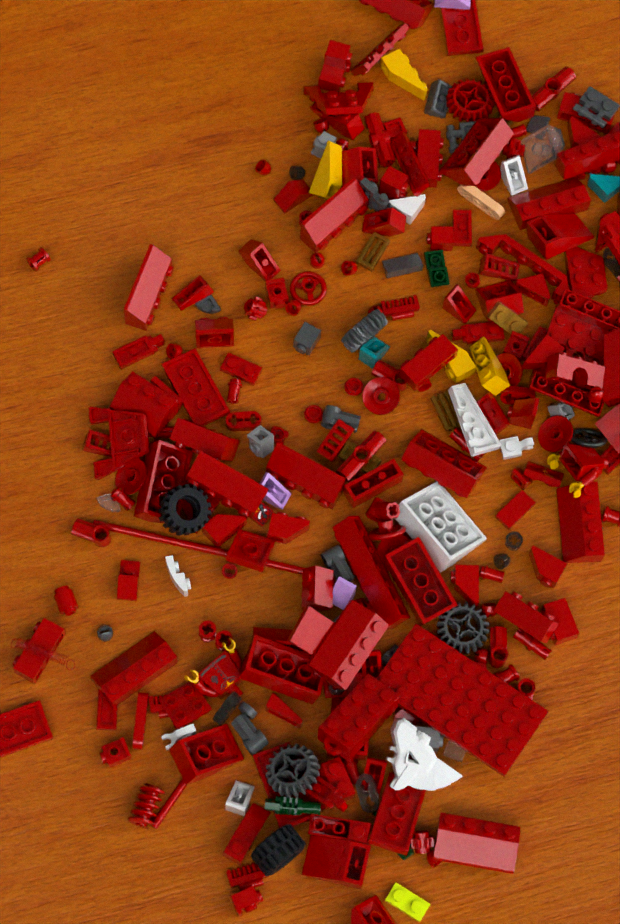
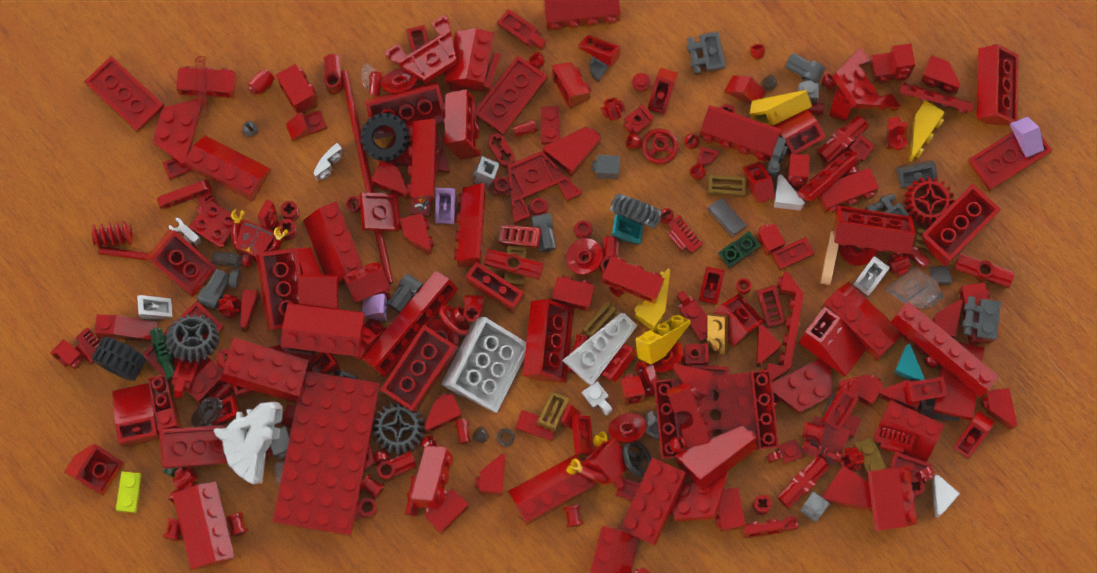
camera: 70 degrees right, 5 degrees up
(71, 699) = (177, 129): none -> red wing
(94, 568) = (297, 89): none -> red brick
(122, 756) = (149, 193): red brick -> none
(208, 647) = (268, 215): none -> red hinge
(241, 274) = (641, 82): none -> red plate
(243, 204) = (711, 50): none -> dark grey plate
(260, 605) = (332, 241): none -> red slope
(273, 726) = (229, 306): none -> red gear
(277, 359) = (573, 149): none -> red slope
(282, 405) = (533, 176): none -> red wing
(302, 136) = (807, 70): none -> dark grey piece
(337, 255) = (707, 156): none -> red tile
(362, 37) = (940, 74): none -> red slope
(400, 95) = (896, 134): none -> red hips
(410, 421) = (573, 293): none -> red brick
(464, 875) = (173, 530): none -> red bush
(487, 813) = (236, 524): none -> red bush
(520, 499) = (547, 425): none -> pearl gold tile

